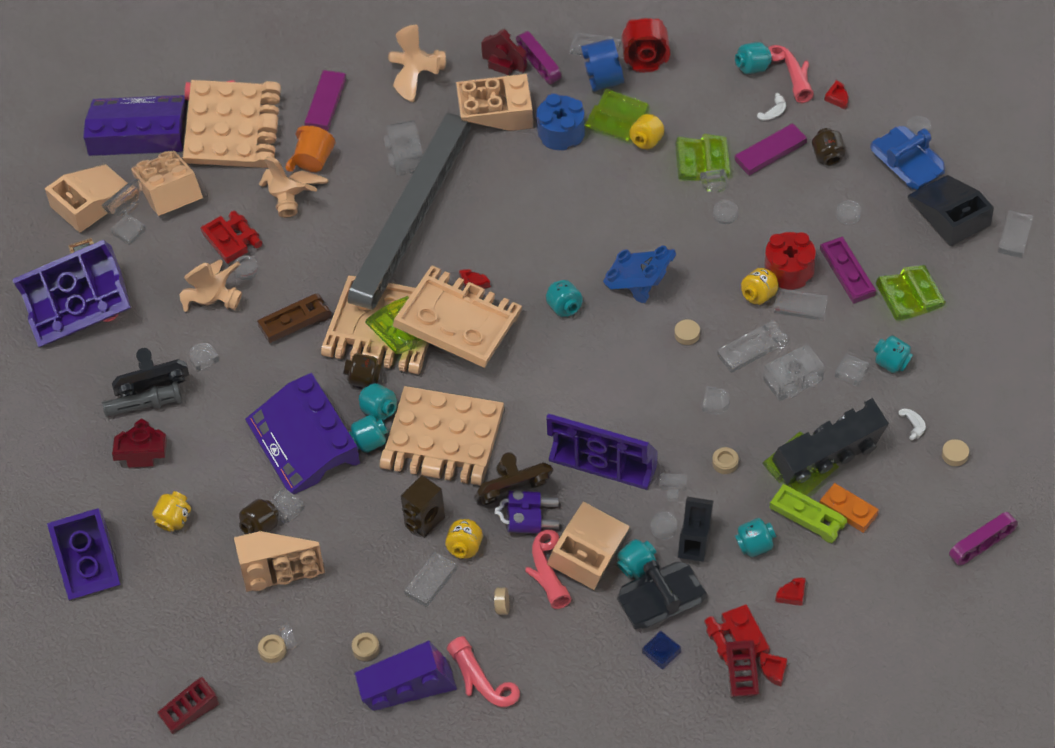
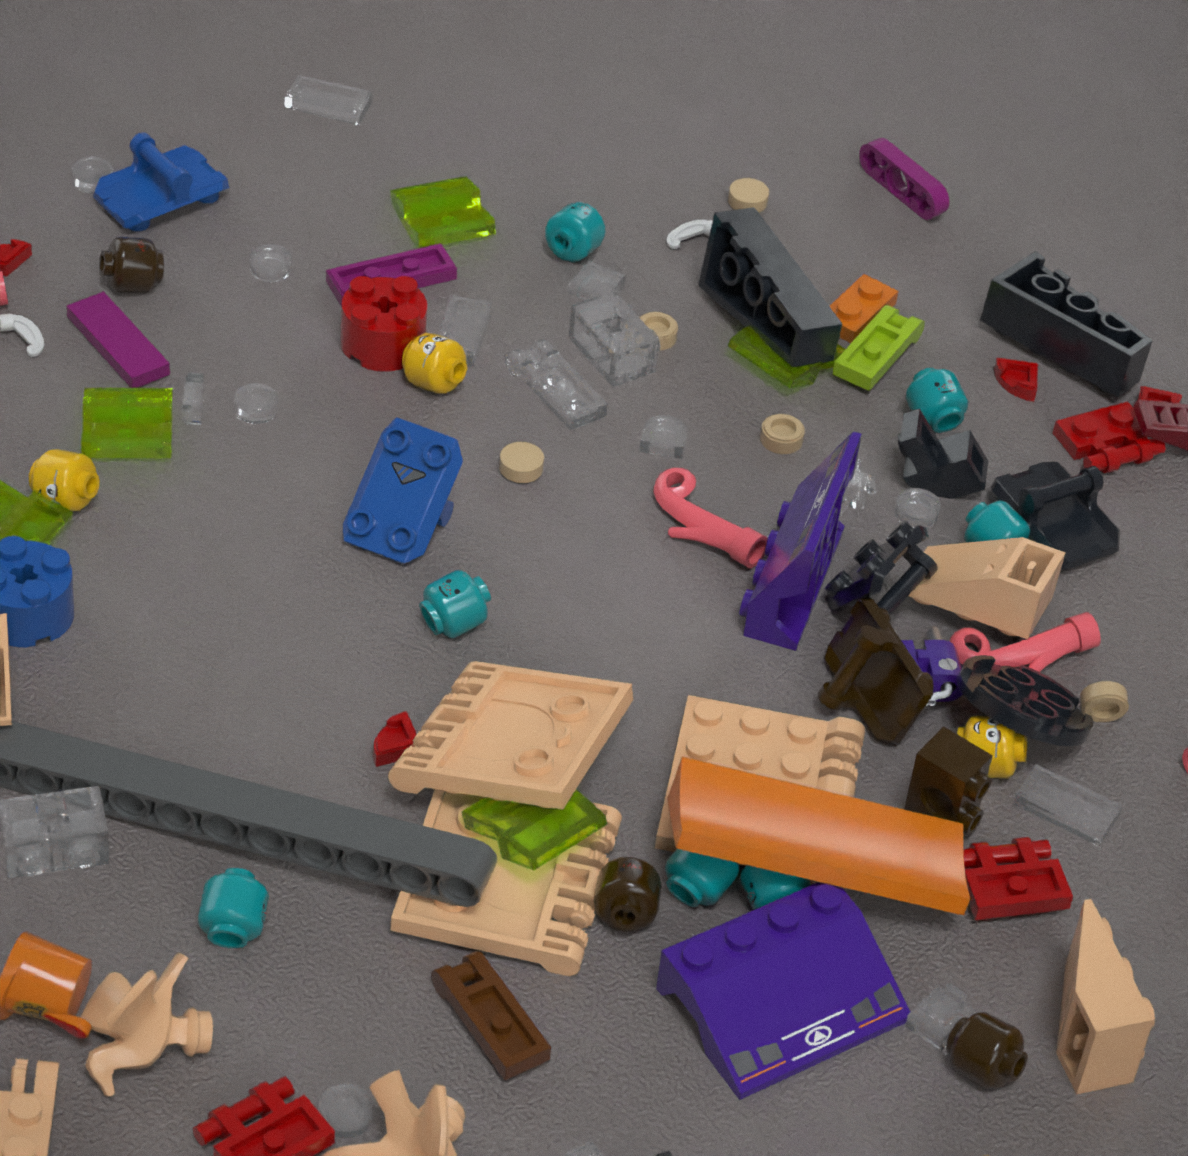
camera: 100 degrees left, 10 degrees down
(356, 216) = (233, 908): none -> teal head
(366, 543) = (1014, 888): none -> red plate
(376, 440) = (818, 835): none -> orange arch
(490, 552) = (1024, 701): none -> black tile
(580, 477) = (875, 563): none -> black shield
(637, 417) = (741, 543): none -> coral plant
(661, 650) = (1149, 523): clear blue plate -> none
(812, 400) = (664, 327): none -> tan tile
(837, 608) = (1065, 325): none -> black wedge
(953, 208) = (283, 142): black slope -> none

